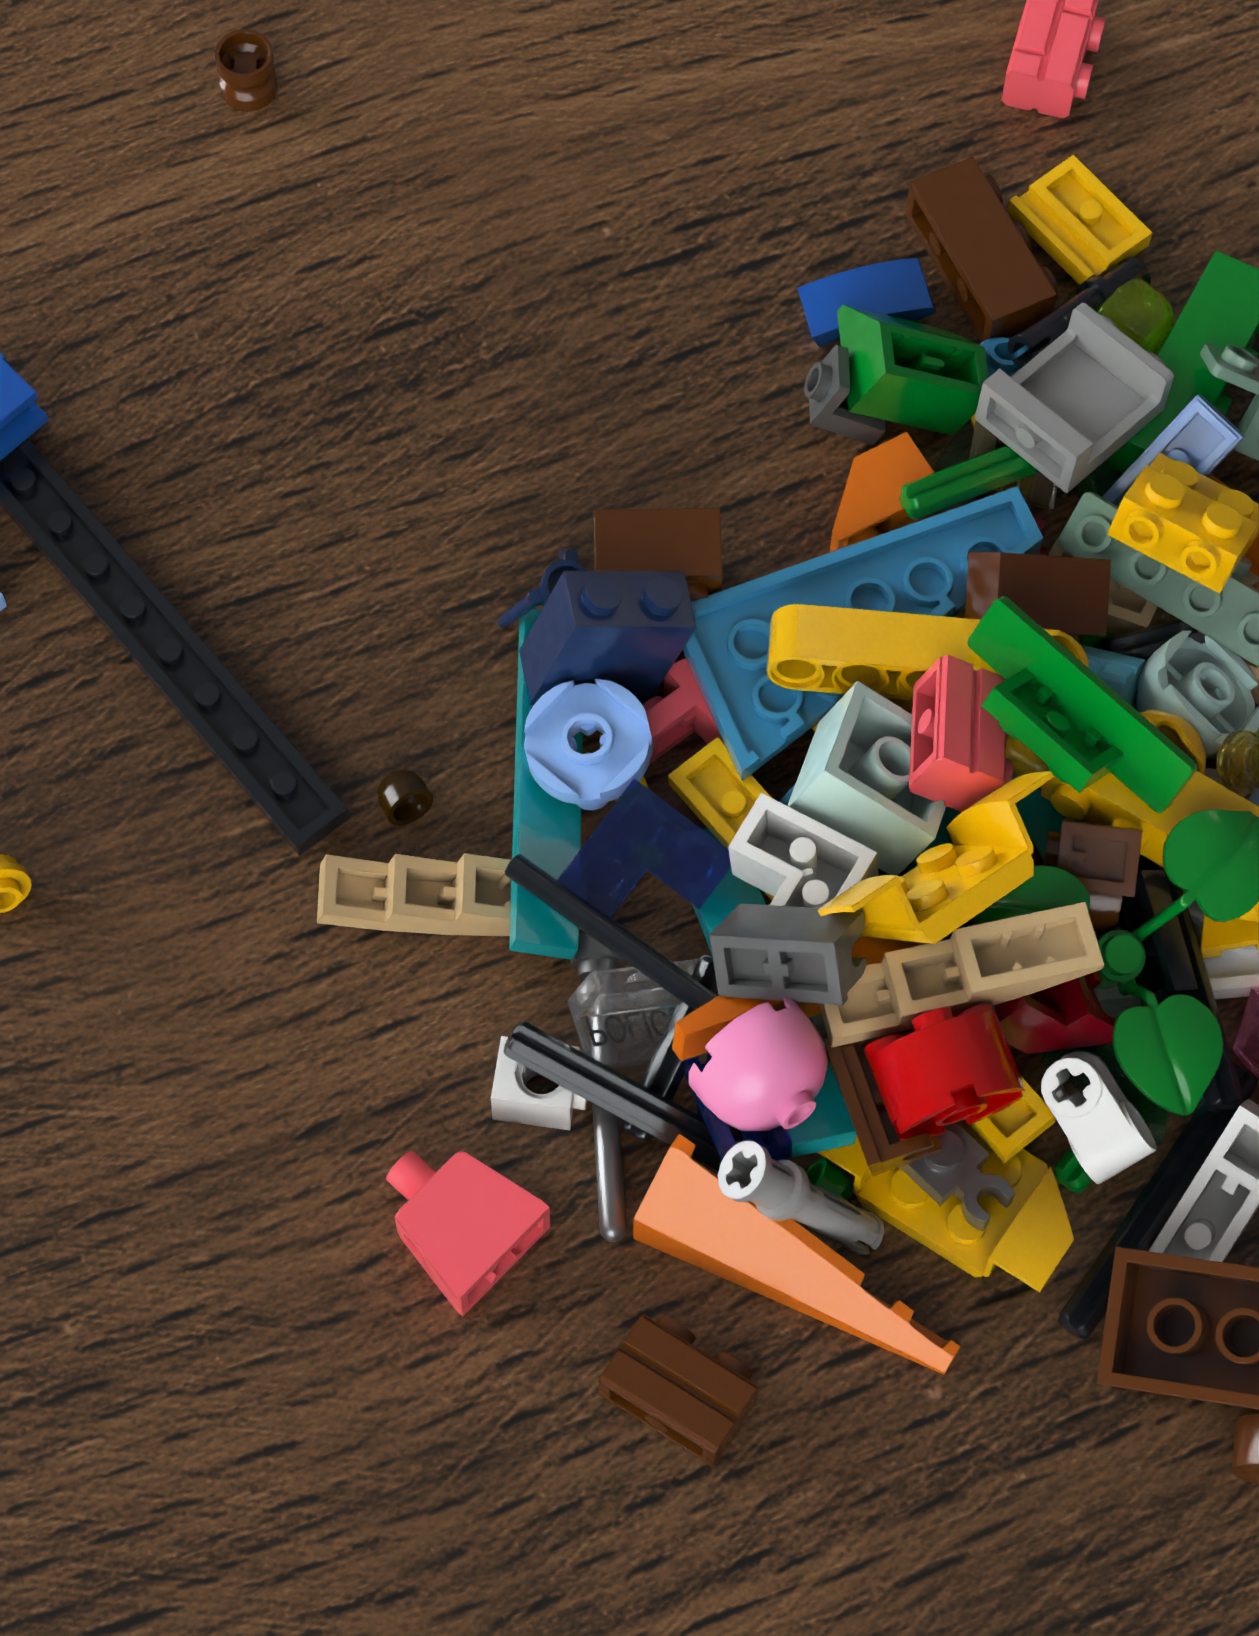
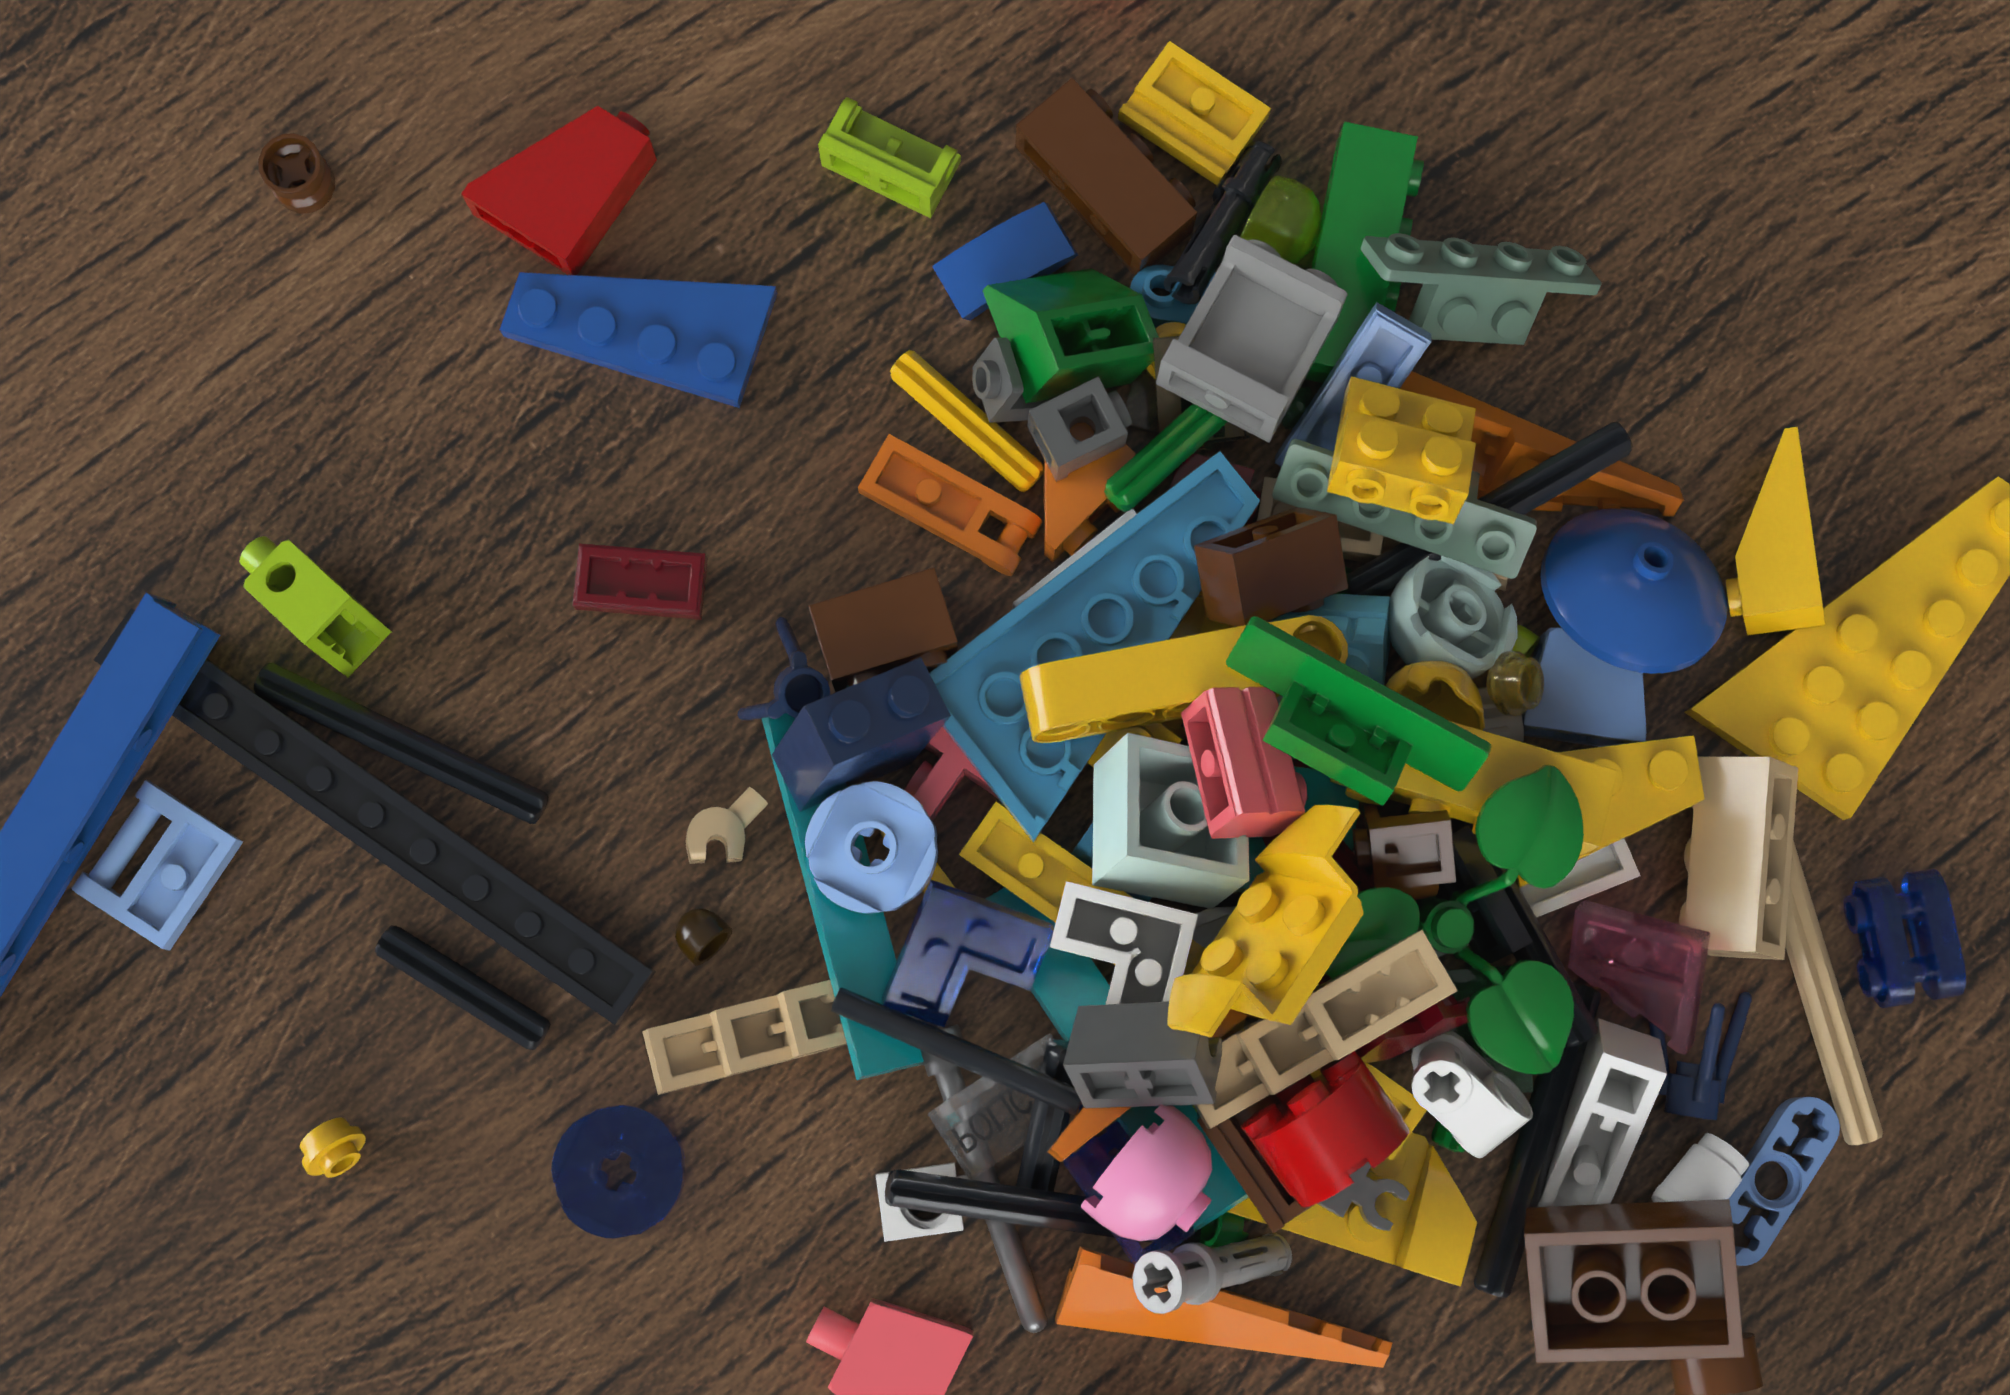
camera: 20 degrees left, 15 degrees up
(126, 395) = (311, 604): none -> lime torso
(165, 783) = (462, 987): none -> black axle
(182, 562) = (401, 743): none -> black axle
(257, 1017) = (583, 1185): none -> clear blue plate
(444, 480) = (640, 581): none -> dark red plate
(451, 705) = (724, 826): none -> tan piece
(482, 140) = (566, 187): none -> red slope
(527, 280) = (657, 330): none -> blue wing
(751, 489) = (948, 504): none -> orange plate
(782, 191) = (887, 158): none -> lime hinge
(790, 425) = (966, 421): none -> yellow axle
(890, 434) = (1086, 404): none -> dark grey brick

